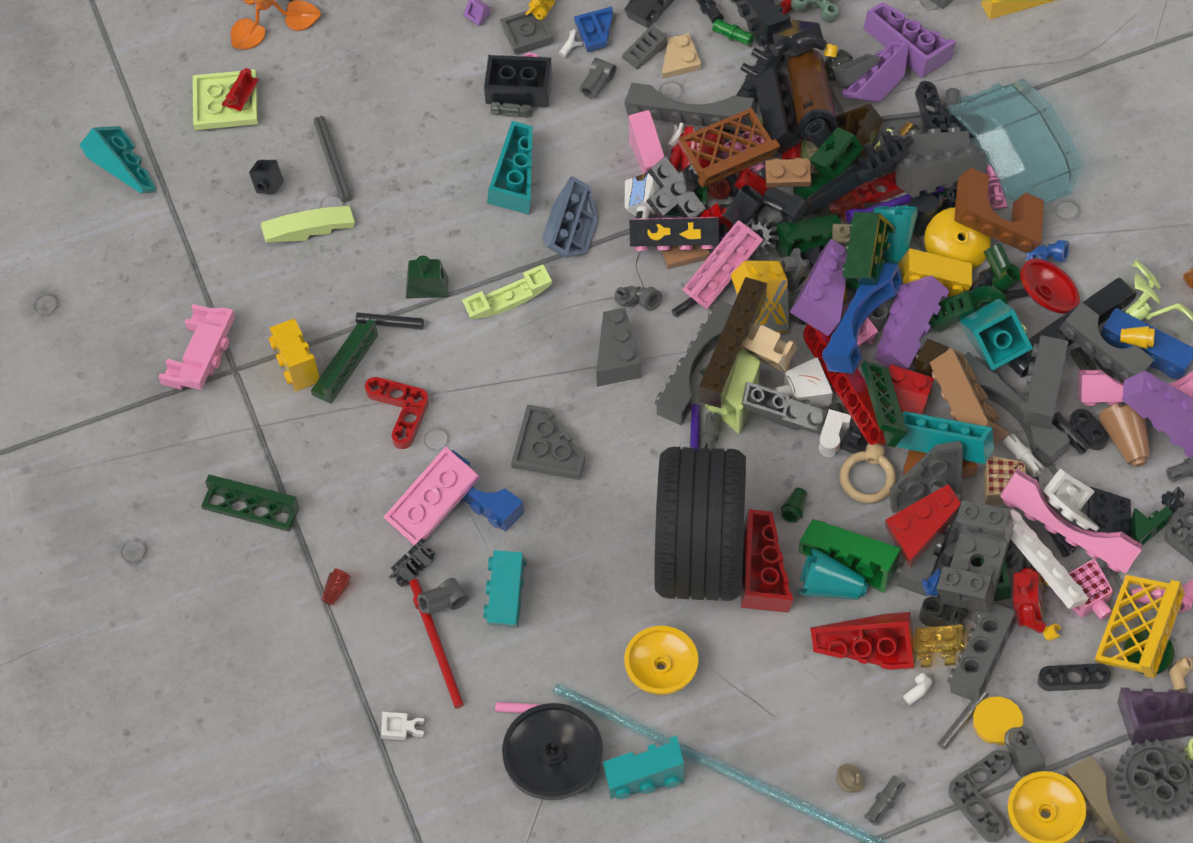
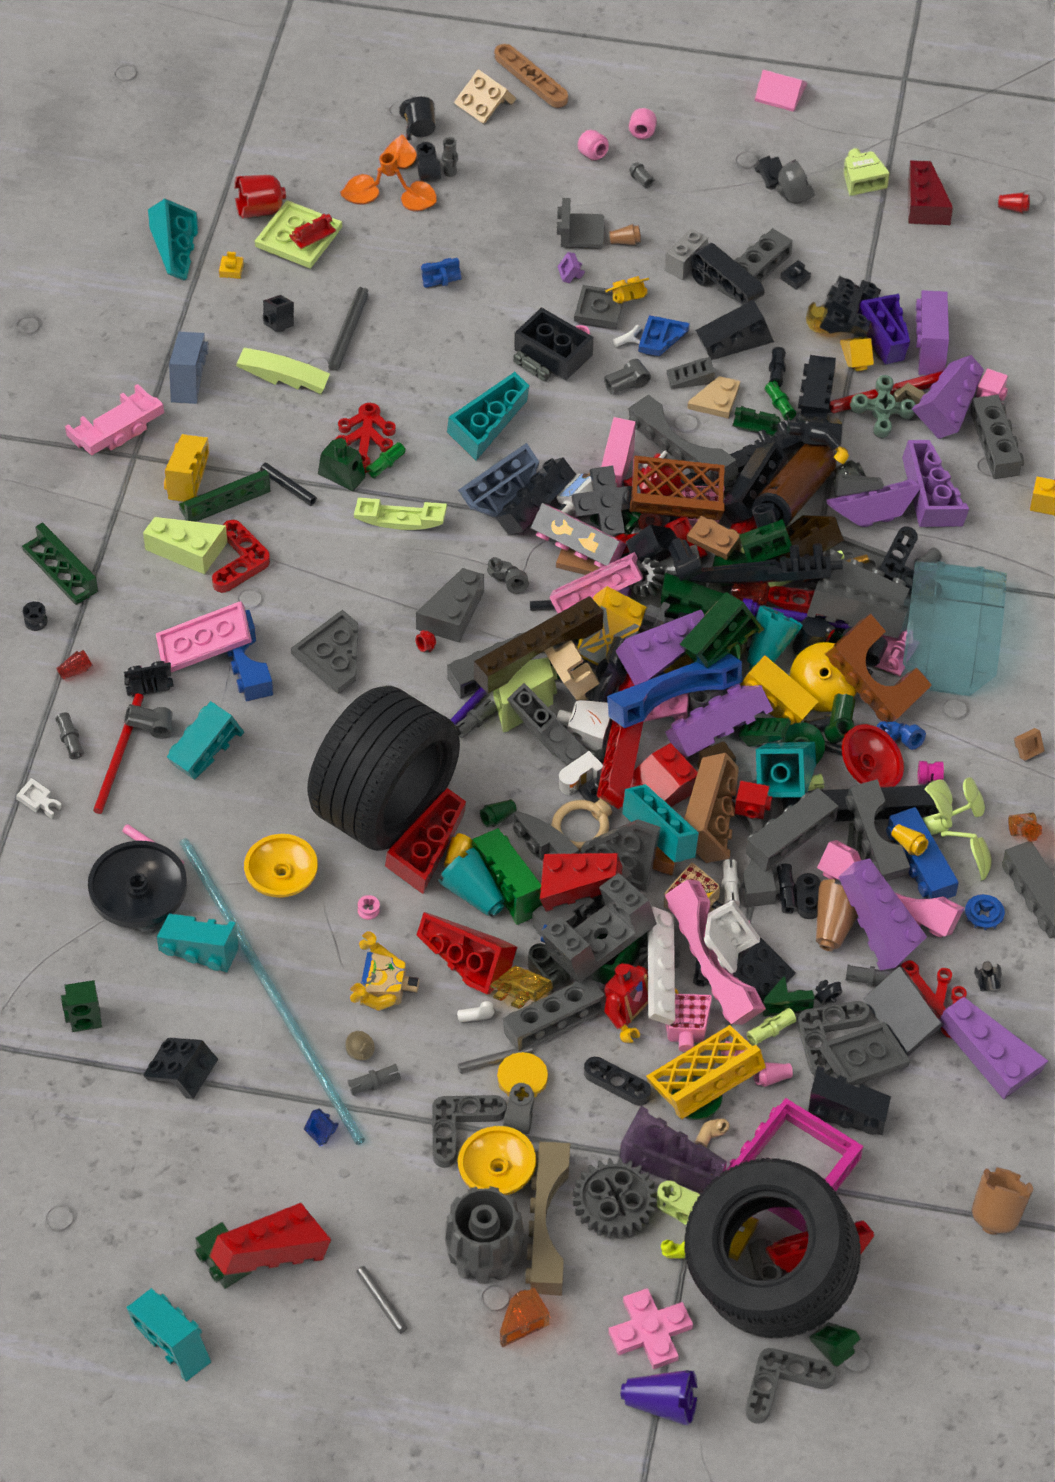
camera: 30 degrees right, 5 degrees down
(166, 84) = (258, 195): none -> red cylinder
(187, 157) = (231, 266): none -> yellow tile
(224, 263) = (187, 366): none -> sand blue wedge
(261, 557) = (38, 612): none -> black wheel
(345, 421) = (185, 542): none -> yellowish green wedge
(375, 69) = (440, 272): none -> blue hips
(381, 652) = (69, 735): none -> dark grey pin
(420, 239) = (368, 414): none -> red plant
(457, 255) = (385, 460): none -> green axle
(608, 217) = (540, 489): none -> black brick
(616, 392) = (425, 641): none -> red plate
(725, 60) = (749, 420): none -> dark green hinge
(755, 659) = (368, 914): none -> bright pink bush
(792, 330) = (610, 673): none -> black piece
(792, 558) = (458, 846): none -> yellow cone
(821, 706) = (382, 977): none -> torso
(854, 505) = (541, 836): none -> dark grey slope
(884, 402) = (634, 763): dark green fence -> none
(995, 375) = (752, 800): none -> red brick
(1099, 272) = (929, 772): none -> dark pink wheel
(1149, 207) = (1029, 744): none -> medium nougat tile
(1153, 556) = (771, 1026): none -> yellowish green pin

